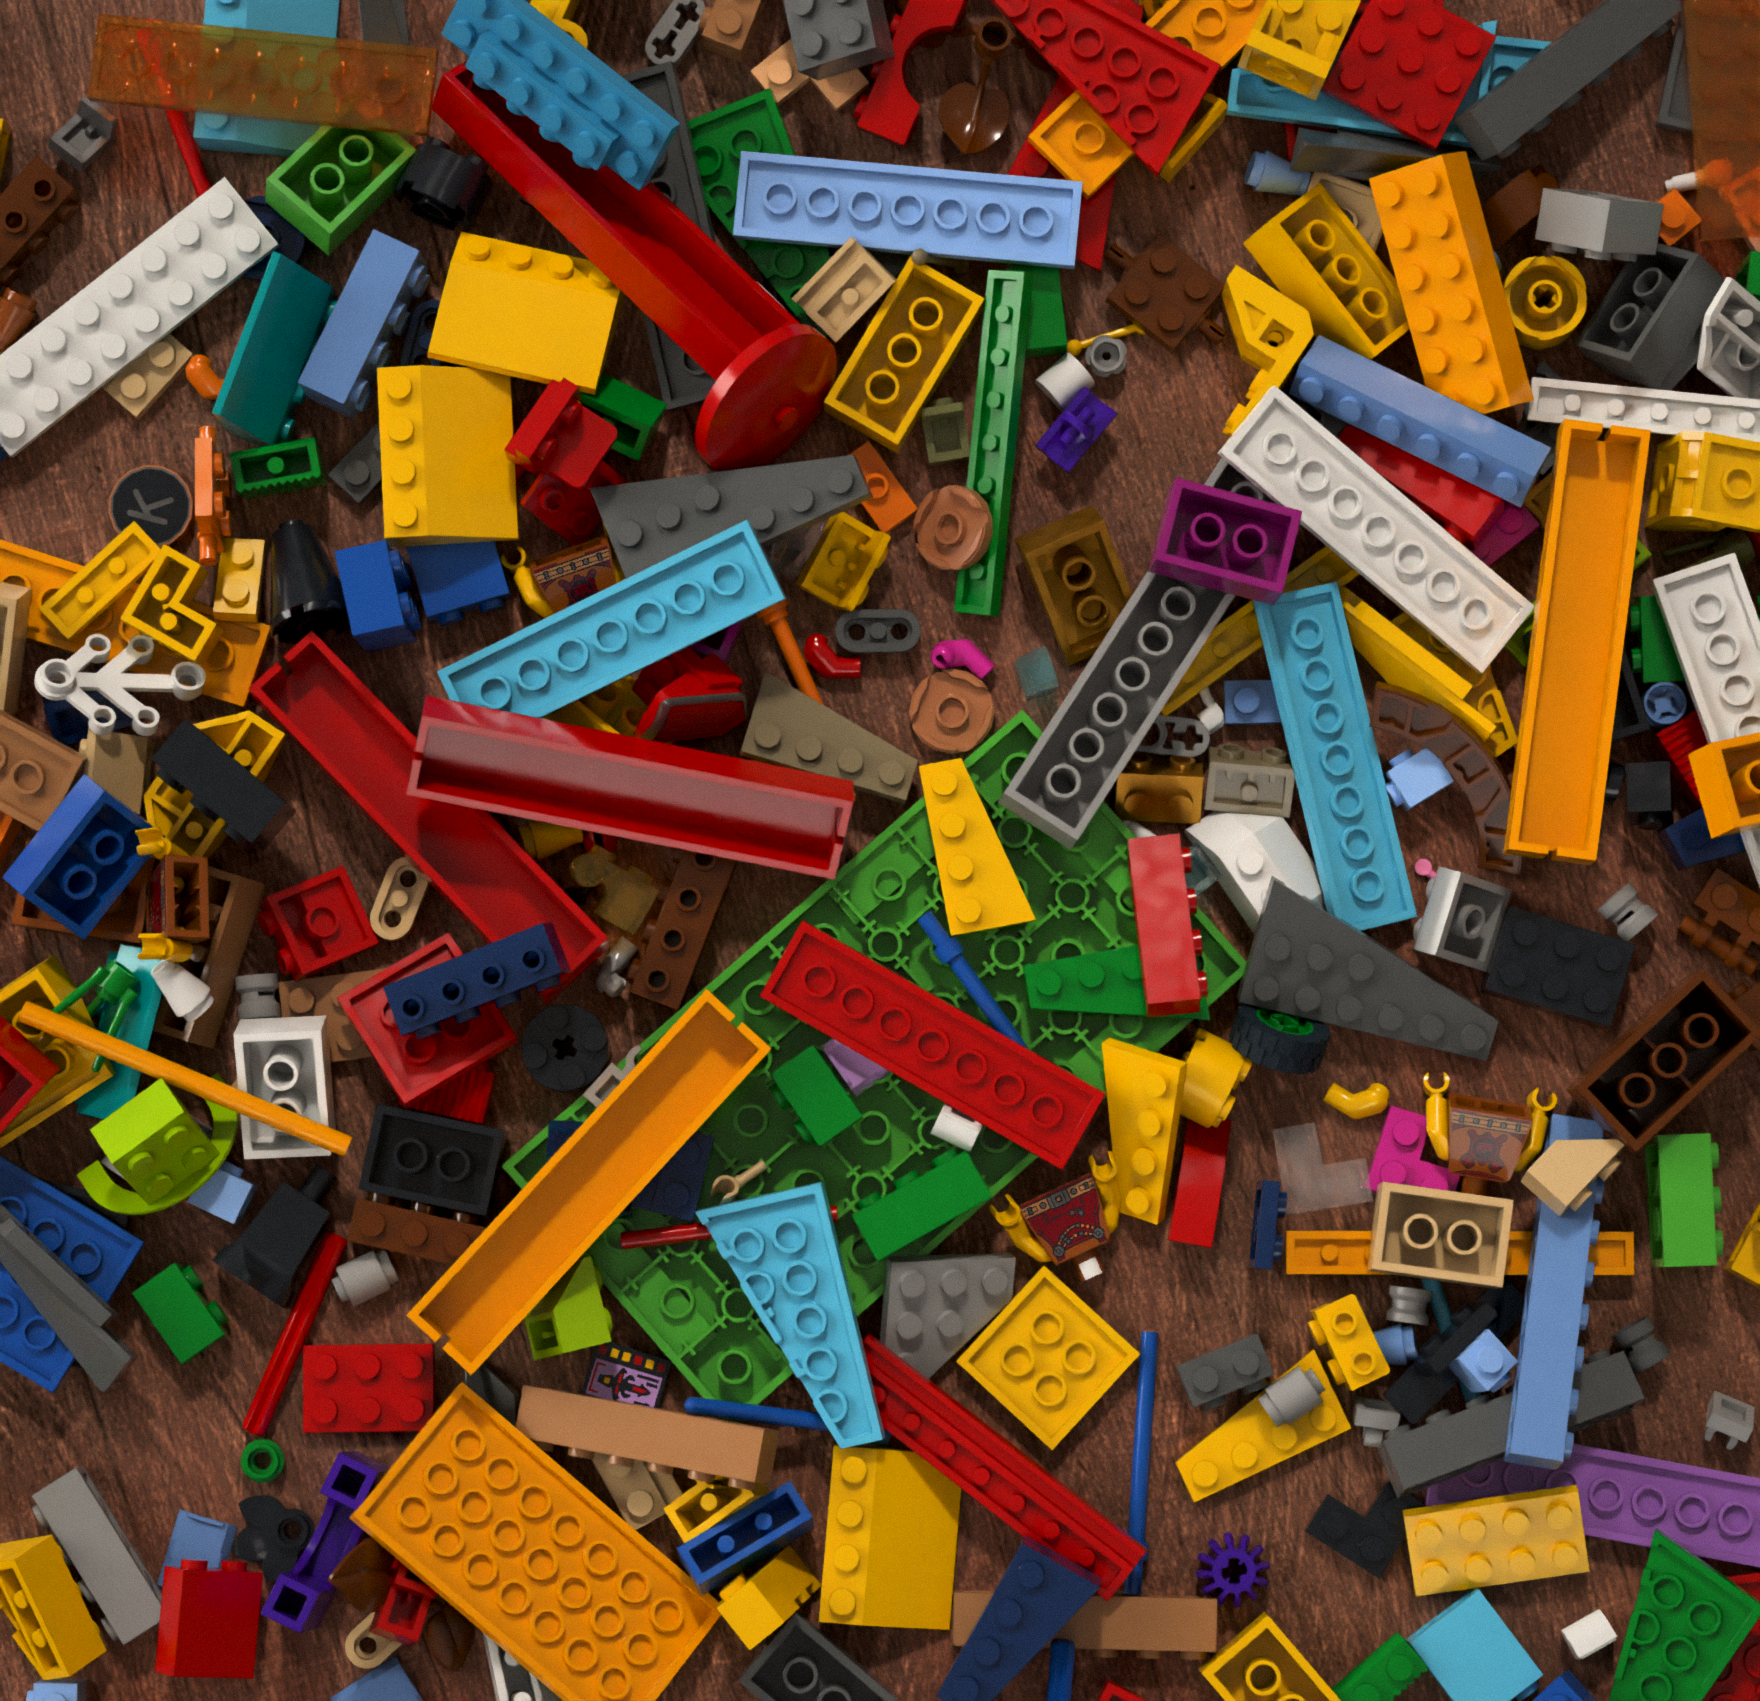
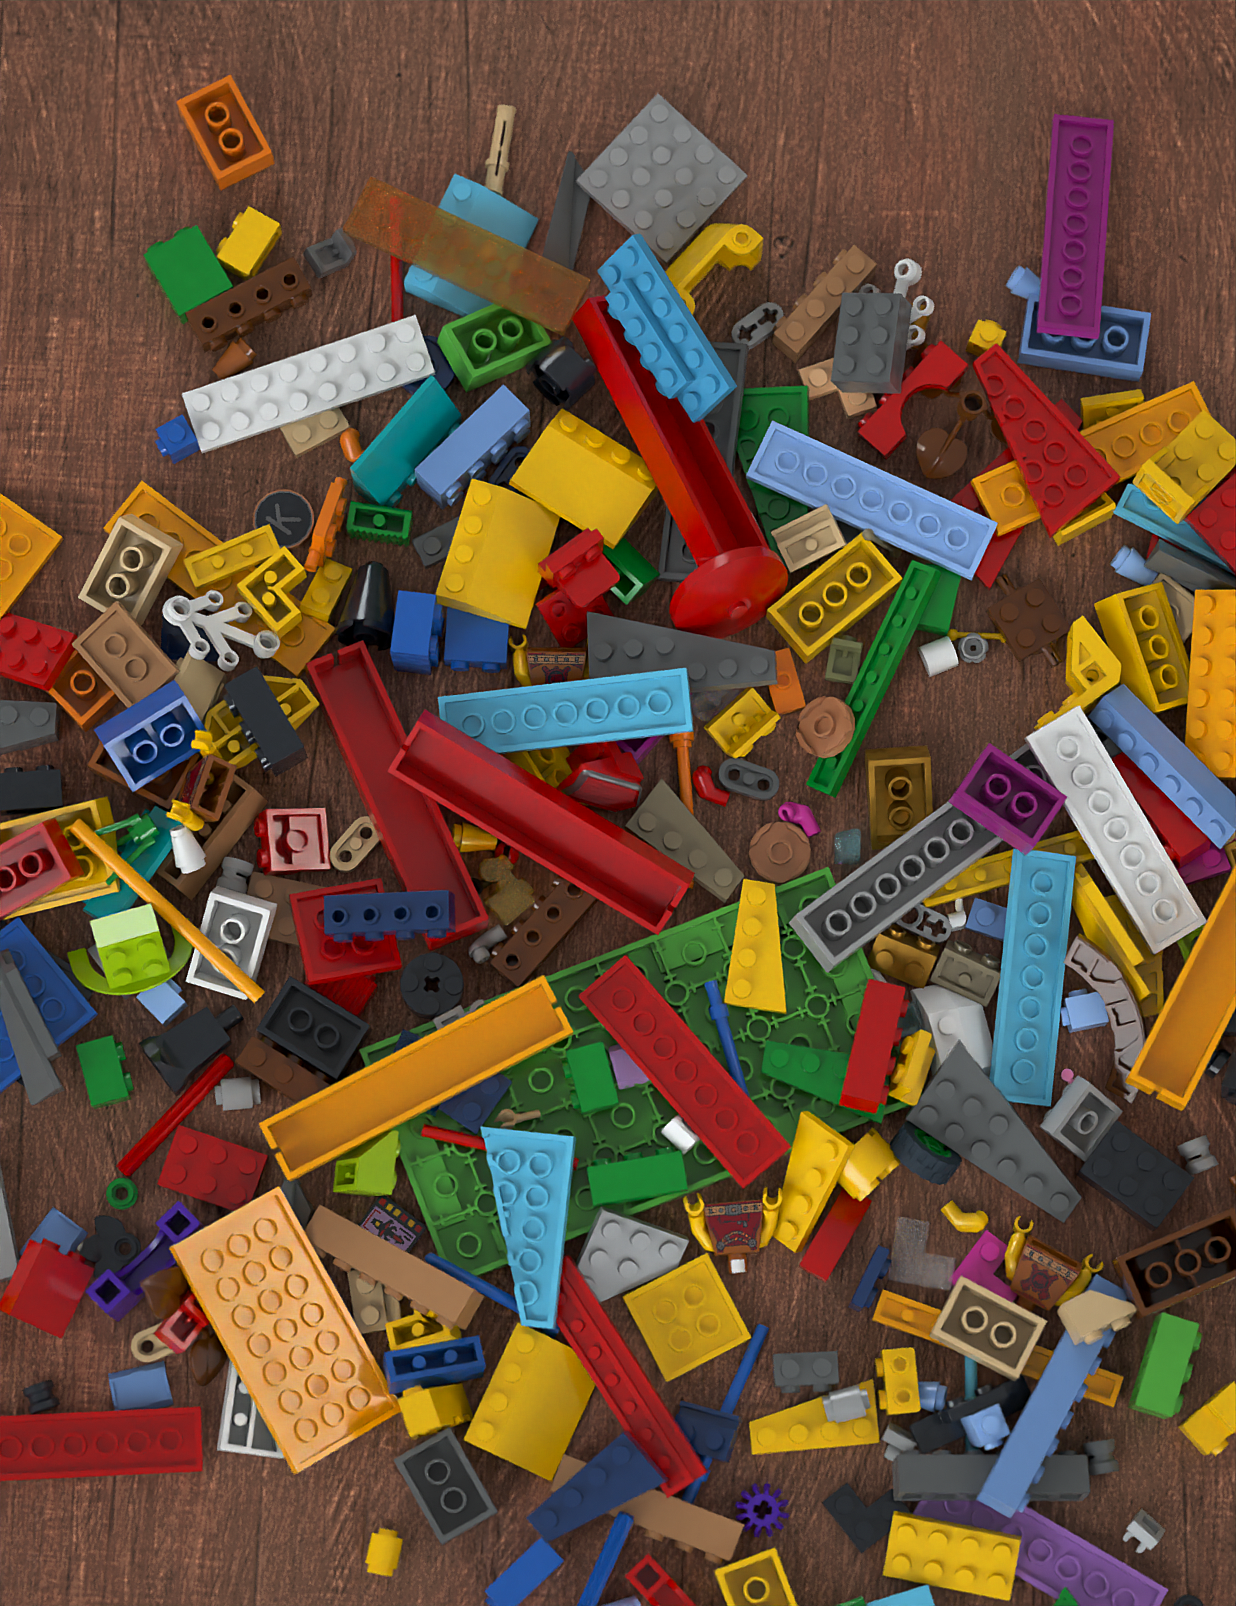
camera: 15 degrees right, 5 degrees down
(1076, 430) = (933, 690): dark purple hips -> none
(1127, 1493) = (709, 1430): none -> dark blue plate
(1223, 934) = (911, 1068): none -> yellow bracket
(1408, 1305) = (949, 1371): light grey wheel -> none

